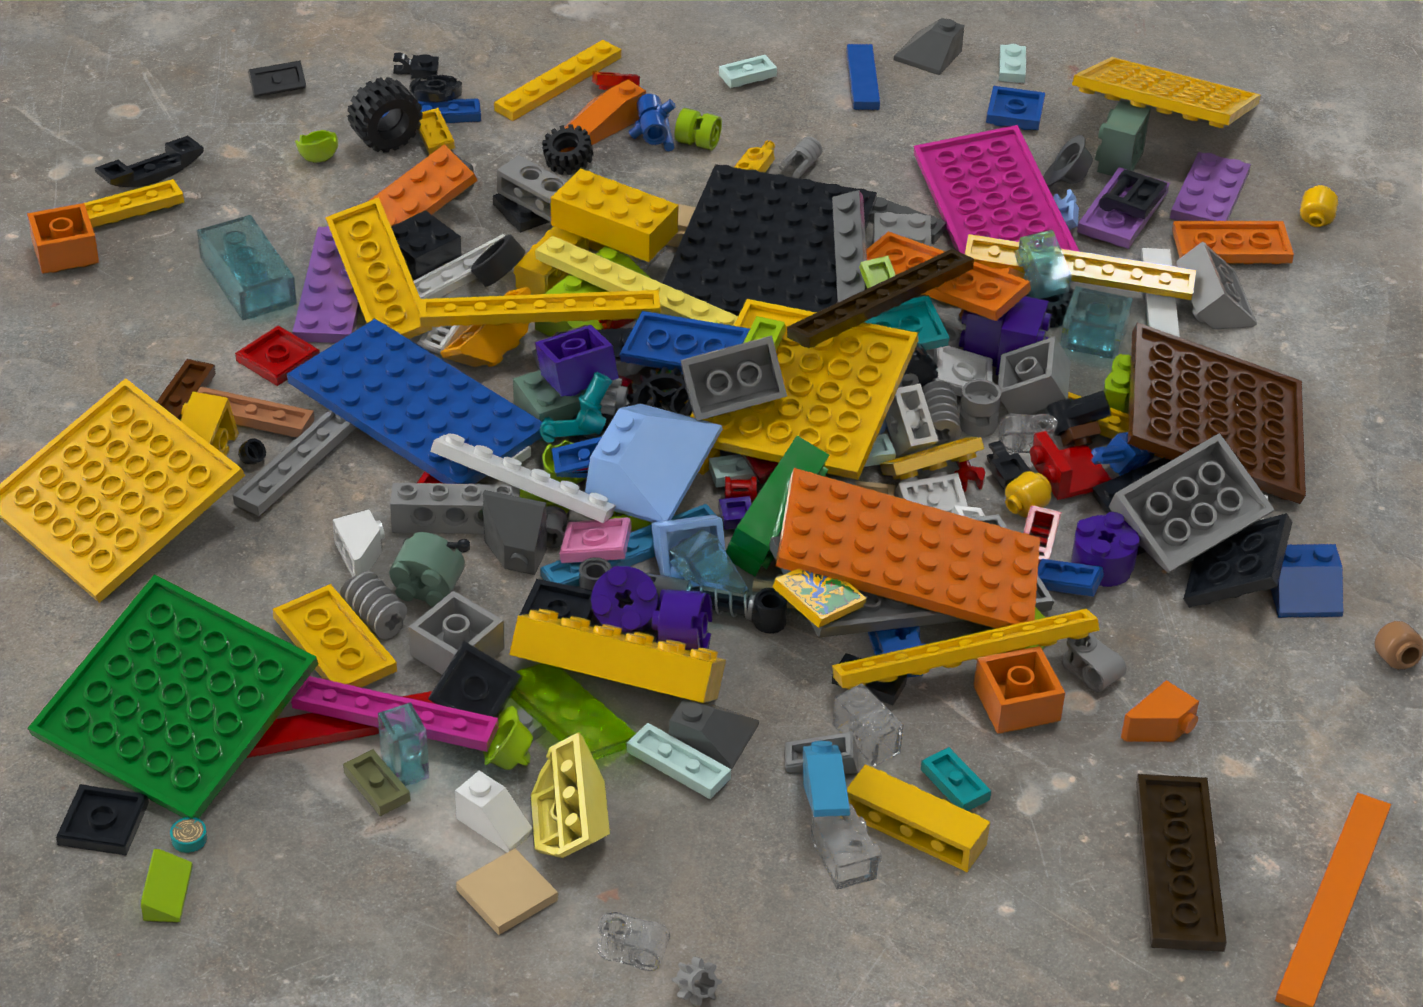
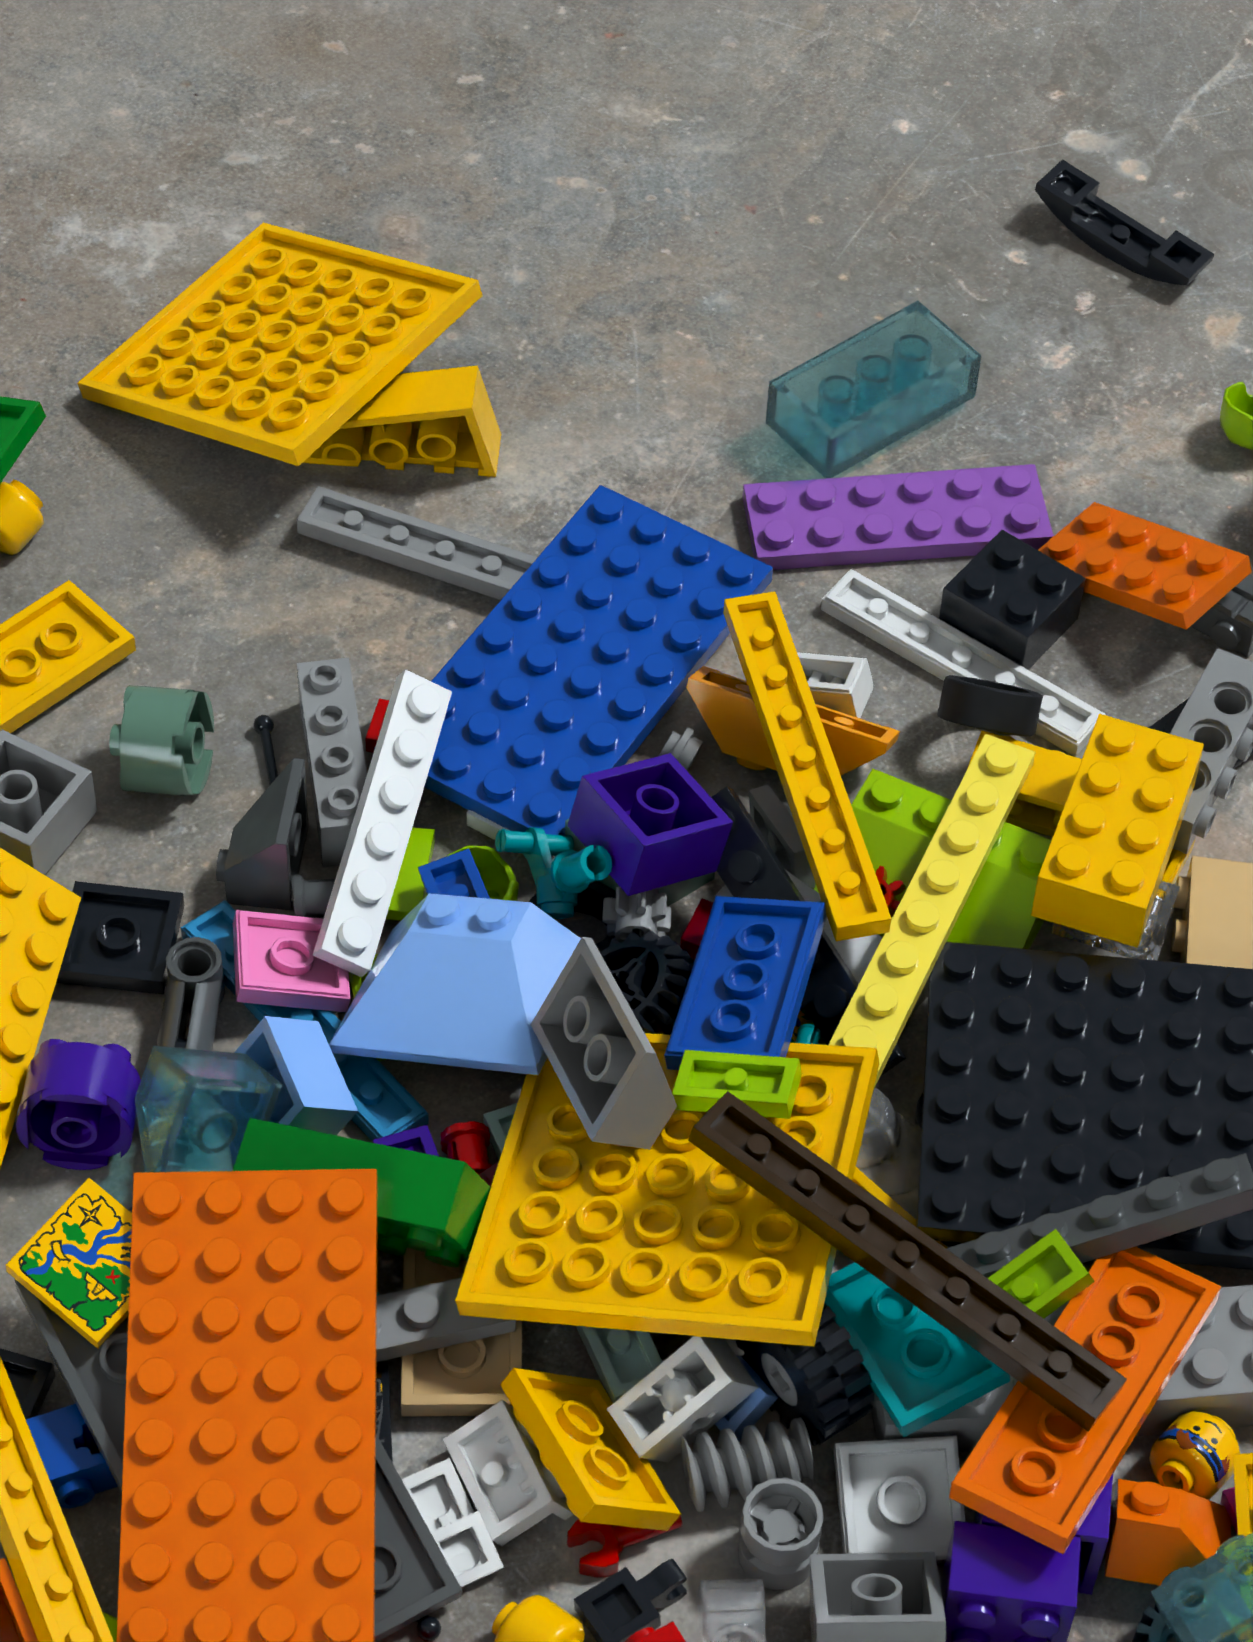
camera: 80 degrees right, 10 degrees up
(63, 238) = (876, 167): orange brick -> none
(134, 203) = (1008, 226): yellow plate -> none
(188, 379) = (556, 385): reddish brown plate -> none
(252, 451) = (425, 489): black hinge -> none
(266, 414) = (529, 473): nougat plate -> none
(276, 354) = (691, 481): red tile -> none
(358, 540) = (234, 656): white slope -> none
(374, 604) = (88, 697): light grey piece -> none
(377, 267) = (903, 544): yellow plate -> none
(488, 377) = (683, 747): none -> light grey plate
(618, 584) = (110, 1000): dark purple brick -> none

